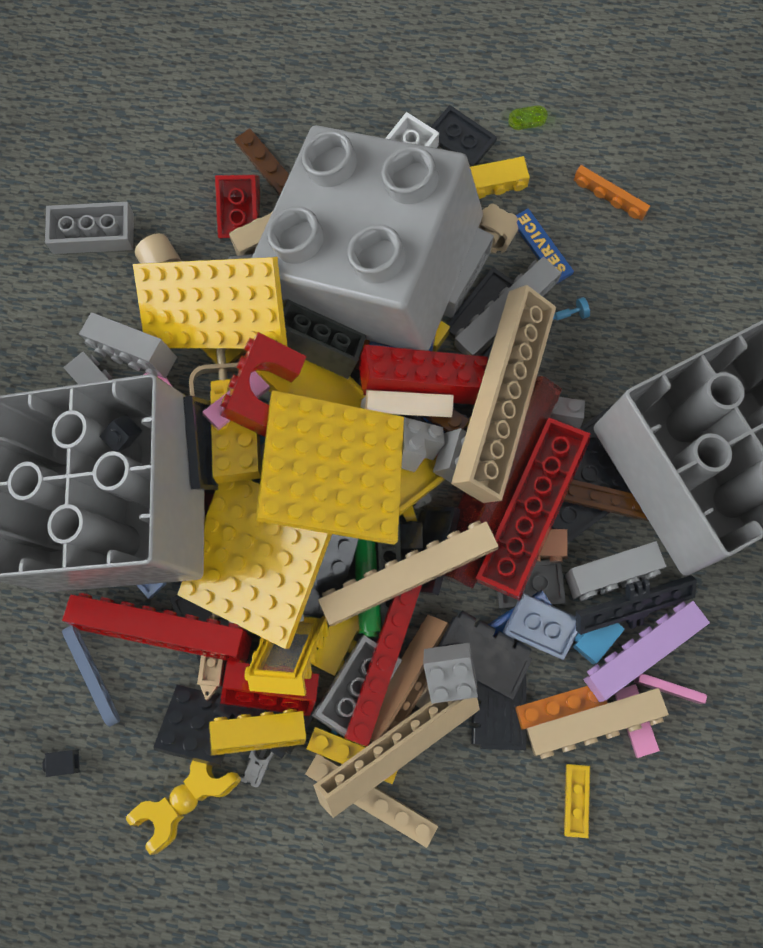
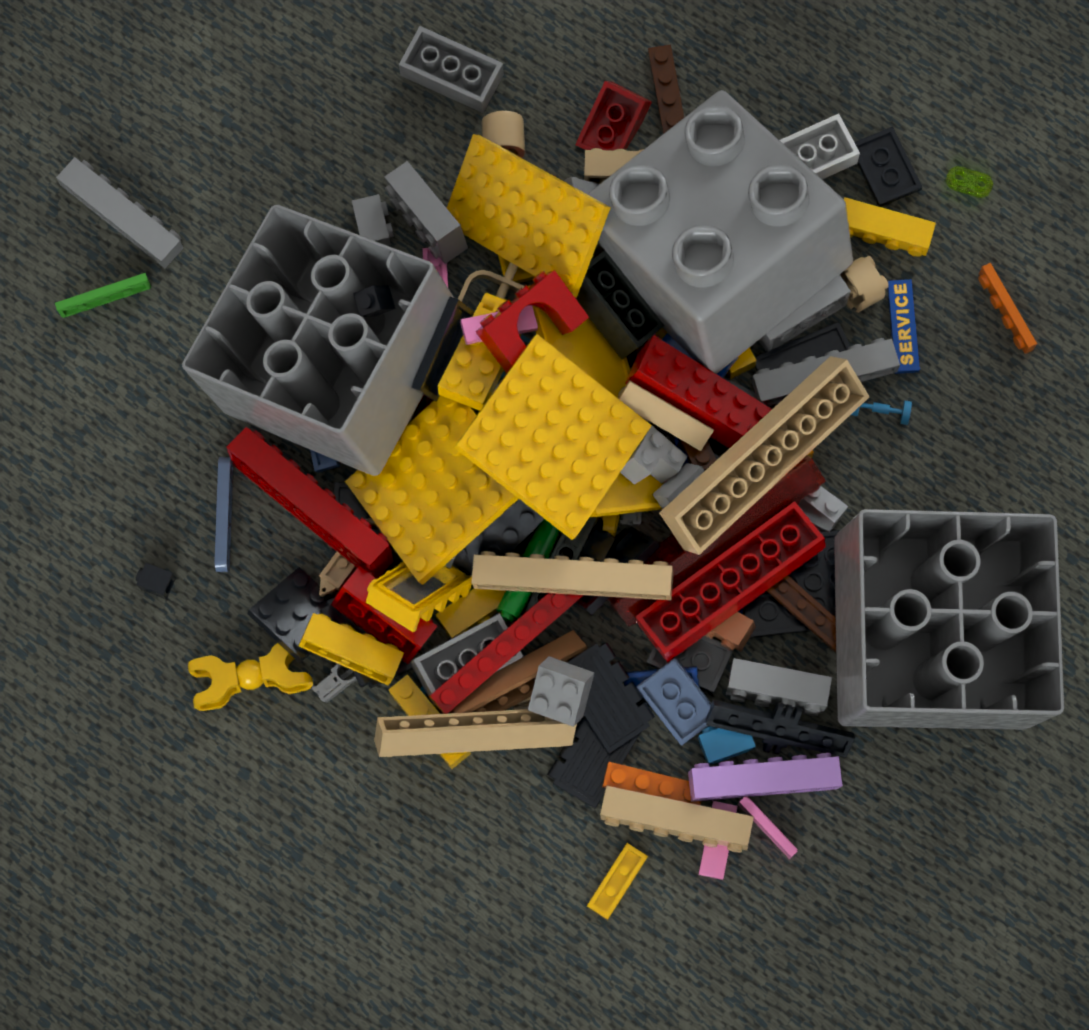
camera: 30 degrees right, 0 degrees up
(382, 806) = (432, 785): tan brick -> none

